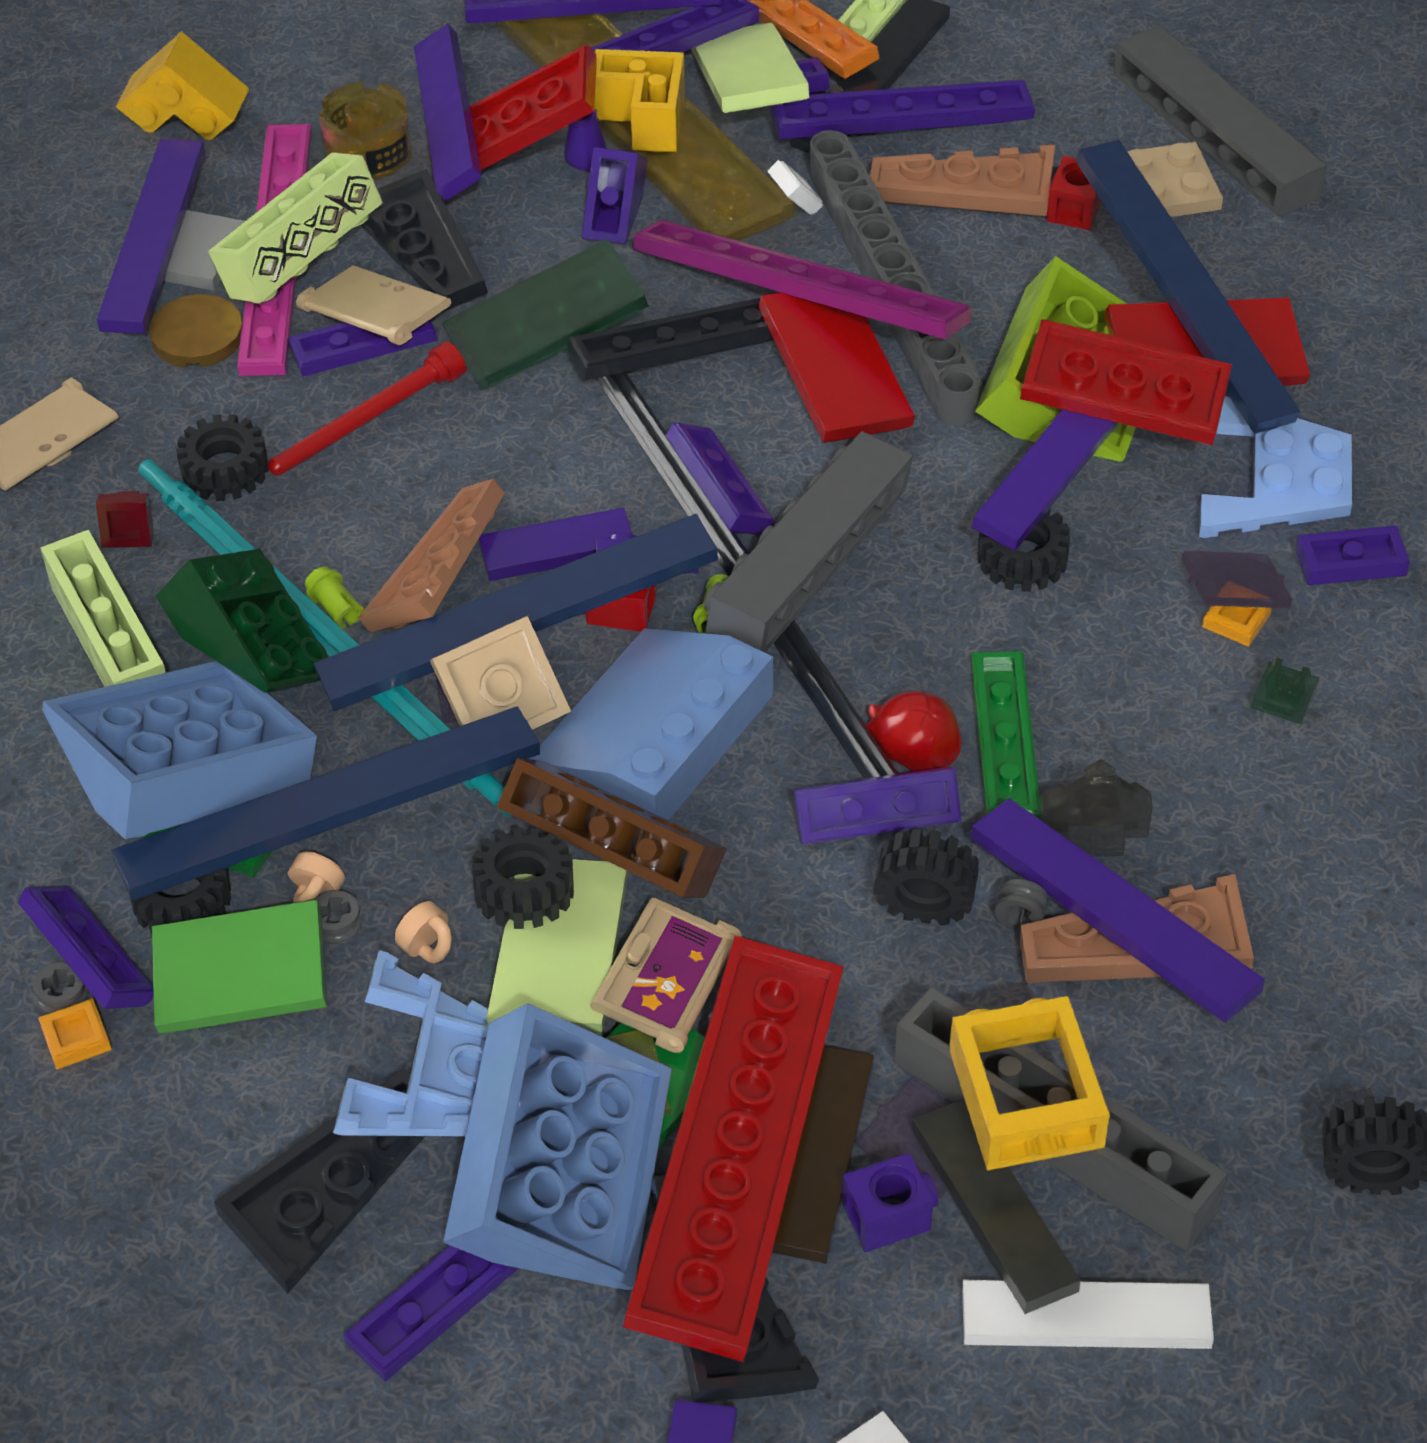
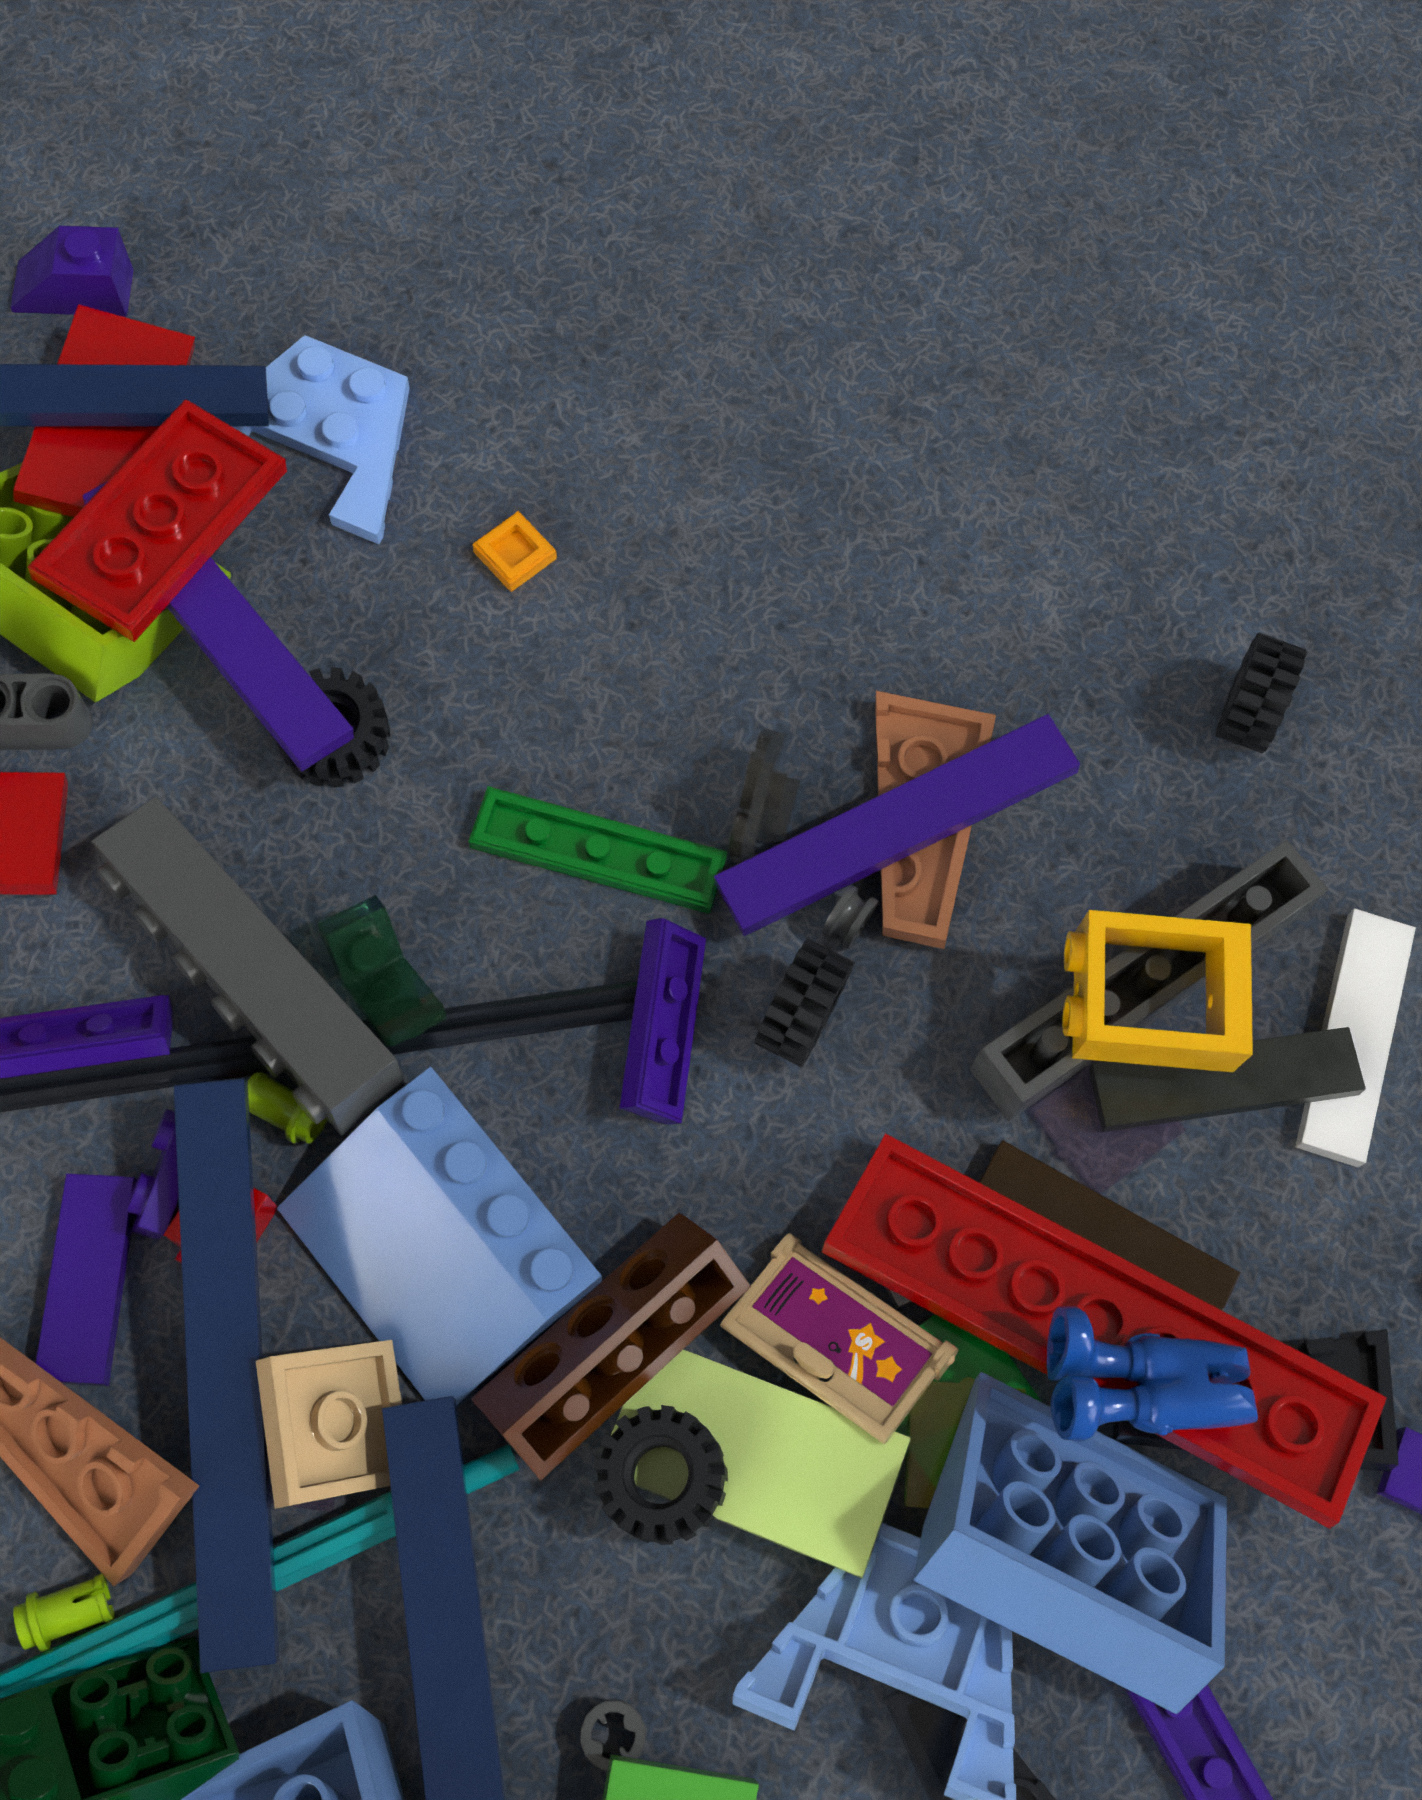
camera: 80 degrees left, 20 degrees up
(314, 876) = (547, 1747): light nougat tile -> none
(423, 927) = (677, 1625): light nougat tile -> none
(699, 1172) = (1179, 1381): none -> blue piece
(845, 620) = (377, 973): none -> clear green bracket
(881, 1223) = (1182, 1208): dark purple brick -> none
(916, 730) = (562, 944): red hair -> none
(1236, 579) = (471, 530): clear purple piece -> none
(1285, 692) = (640, 548): clear green tile -> none
(1321, 297) = (73, 269): none -> dark purple slope
(1352, 555) = (480, 407): dark purple plate -> none

